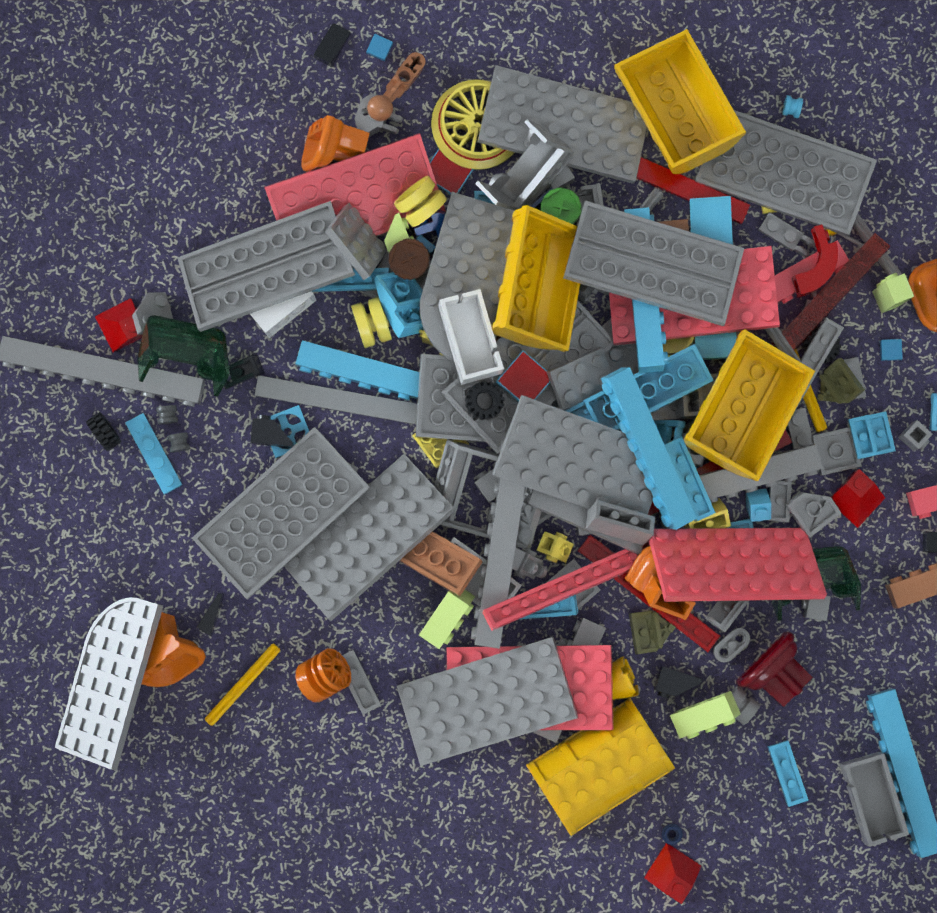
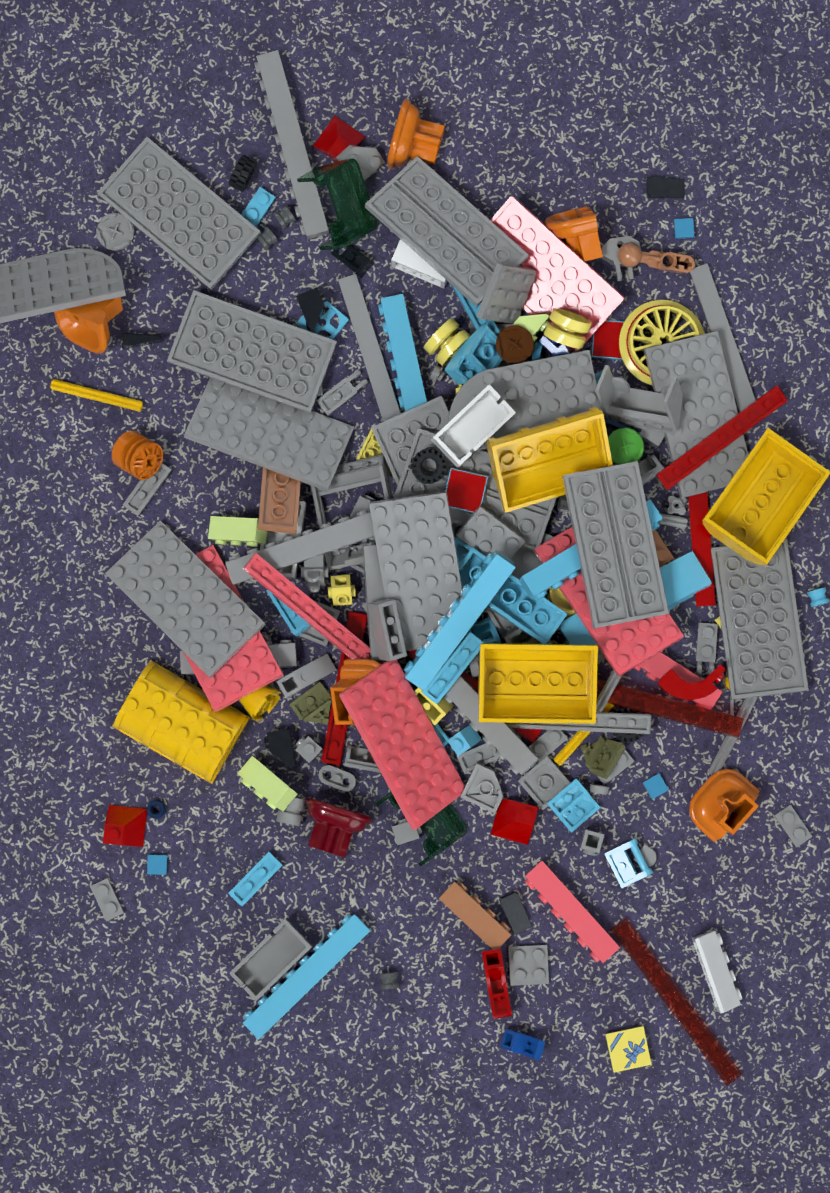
camera: 70 degrees right, 0 degrees up
(93, 584) = (115, 232): none -> light grey tile
(108, 513) = (179, 213): none -> light grey plate
(158, 251) = (414, 138): none -> orange piece
(365, 450) = (340, 393): none -> light grey hinge
(395, 348) = (437, 373): none -> light grey plate
(485, 63) = (718, 322): none -> light grey tile
(598, 114) = (721, 437): none -> red tile
(619, 623) = (306, 676): none -> light grey slope
(639, 197) = (680, 509): none -> light grey plate
(690, 658) = (308, 749): none -> light grey brick
(725, 860) = (157, 864): none -> dark azure tile
(868, 403) = (599, 789): none -> light grey tile
(892, 292) = (700, 758): yellowish green brick -> none

